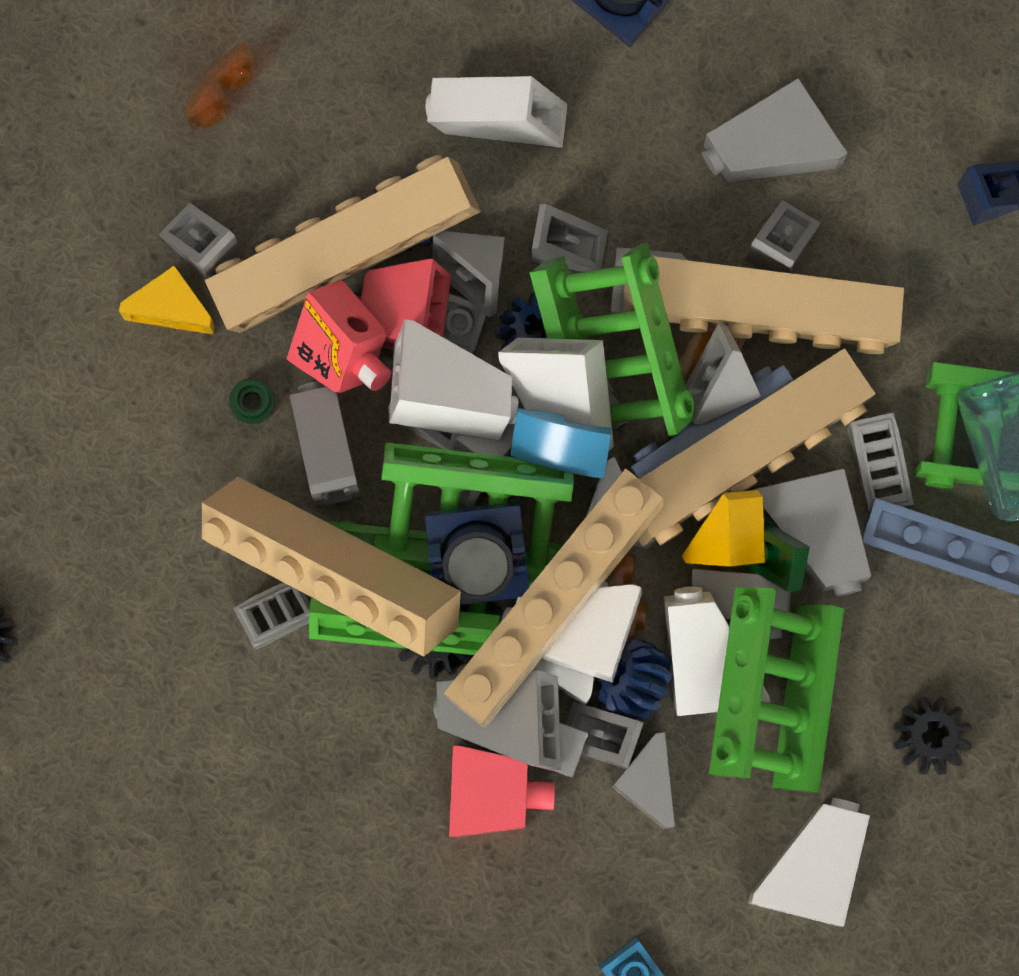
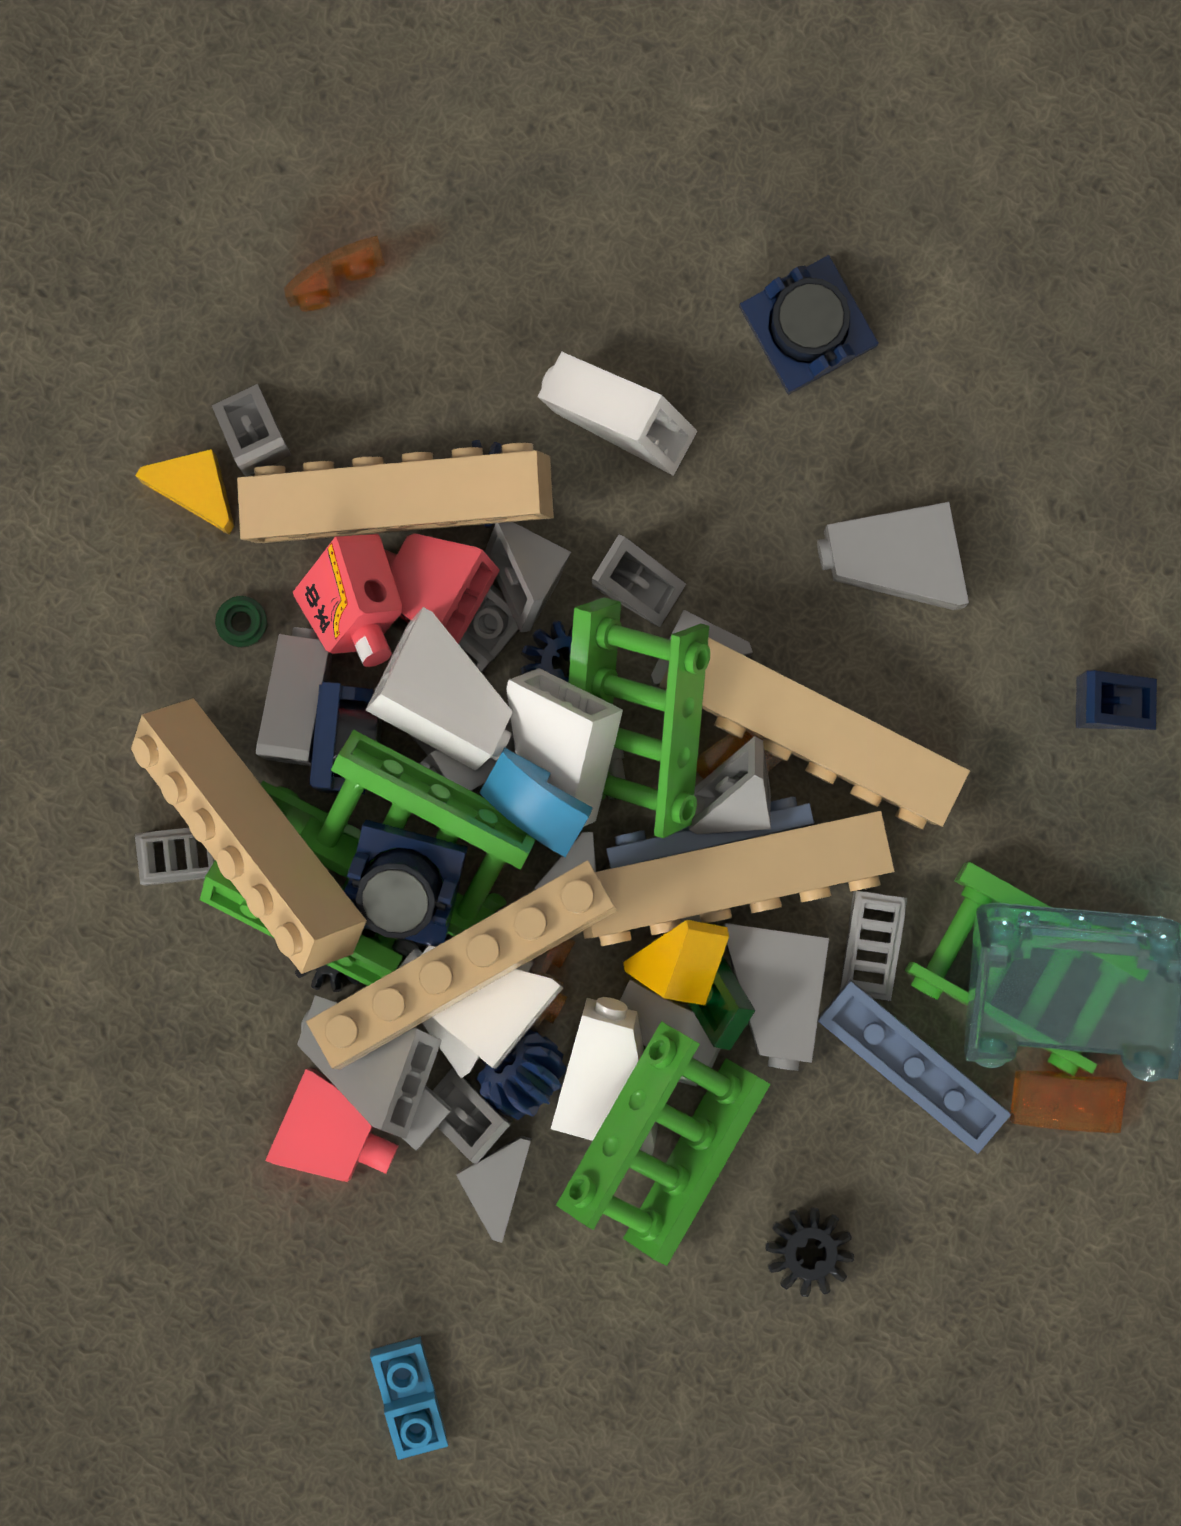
camera: 25 degrees right, 5 degrees up
(367, 440) = (338, 714): none -> dark blue piece
(782, 239) = (866, 666): light grey slope -> none
(818, 866) = (634, 1340): white slope -> none

